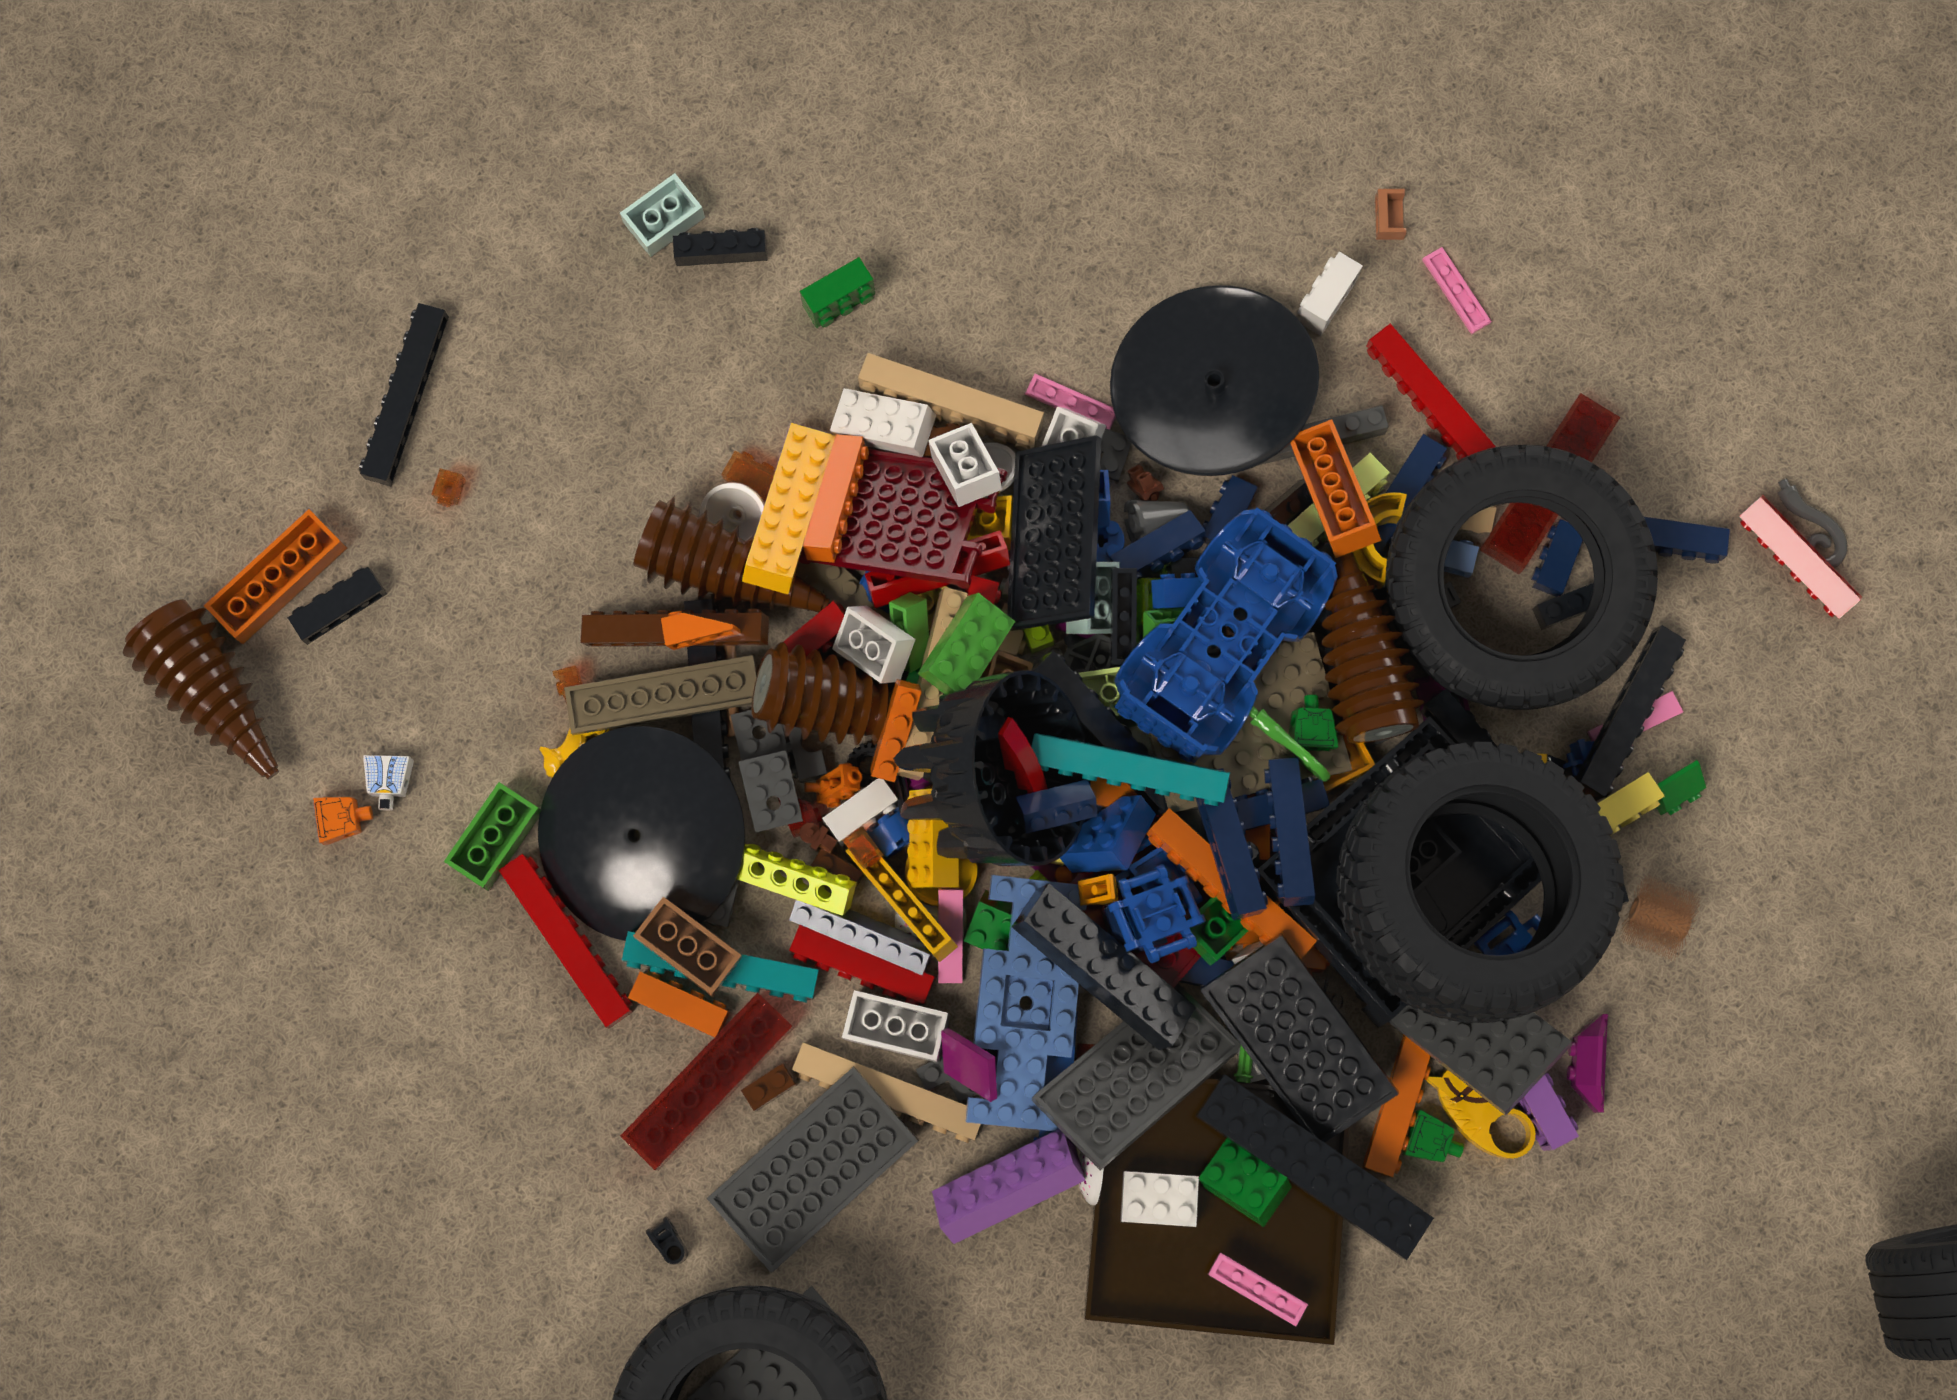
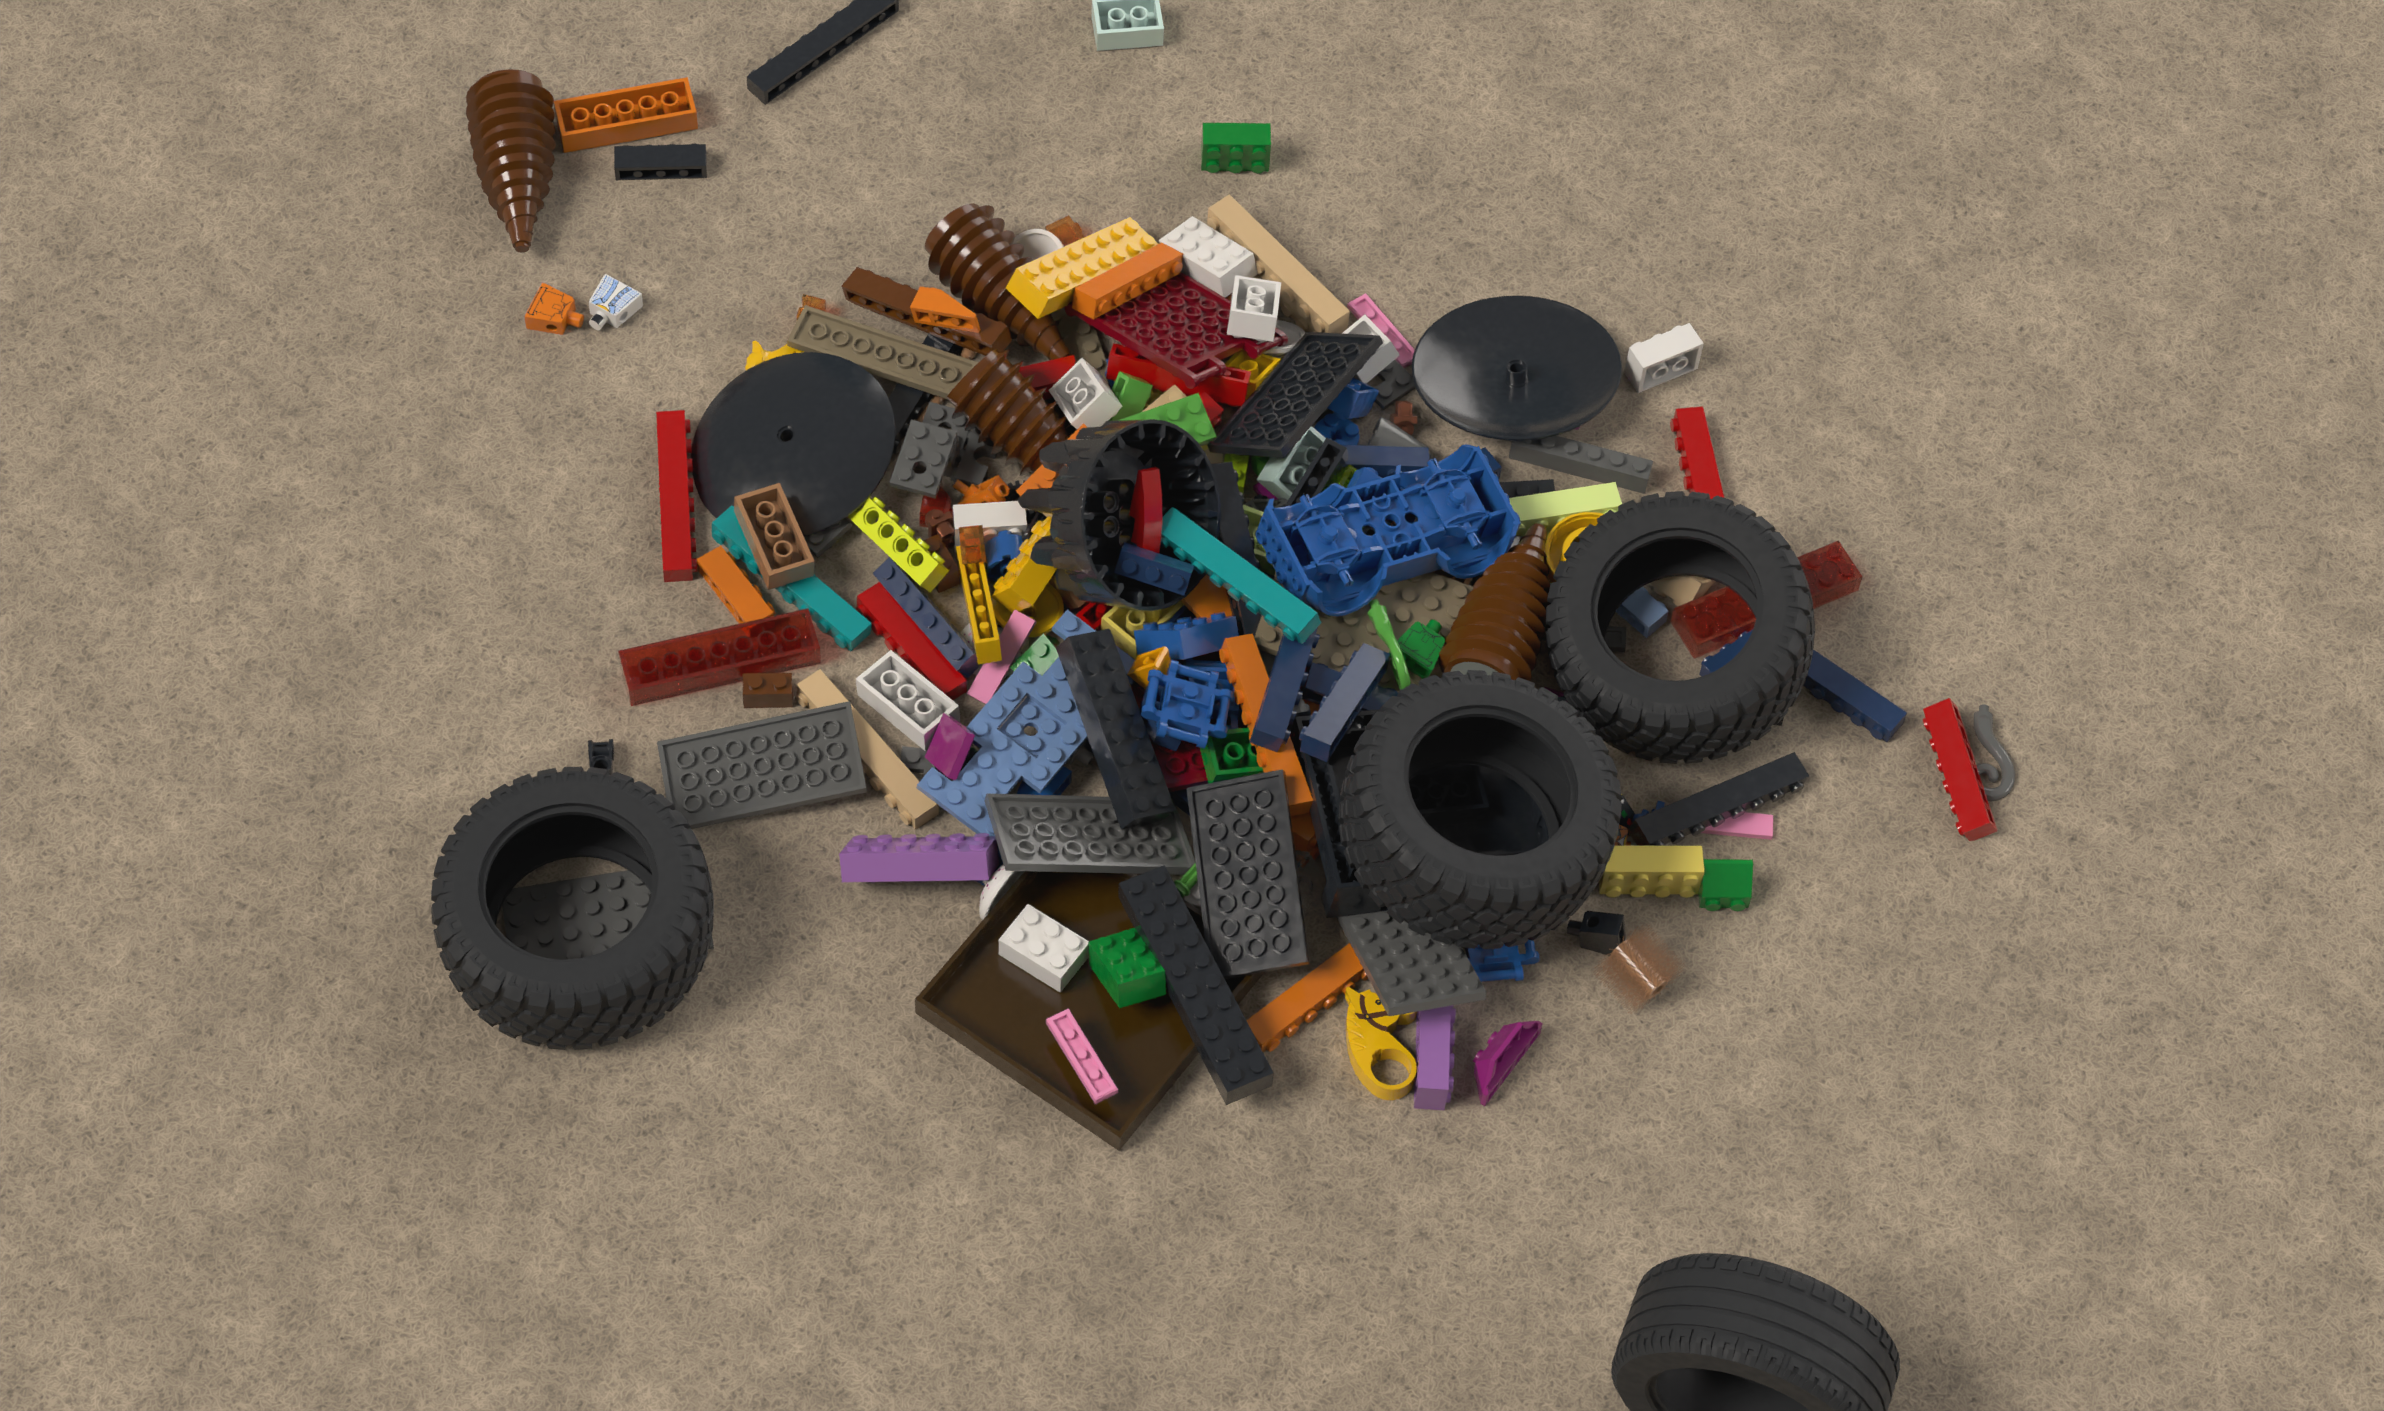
camera: 25 degrees right, 20 degrees down
(445, 480) = (811, 125): clear orange brick -> none
(493, 836) = (669, 386): bright green brick -> none
(720, 247) = (1159, 70): black brick -> none
(1334, 489) = (1561, 482): orange brick -> none
(1389, 214) = (1760, 331): nougat panel -> none
(1431, 1139) = (1316, 1039): green torso -> none
(1456, 290) = (1782, 419): bright pink tile -> none

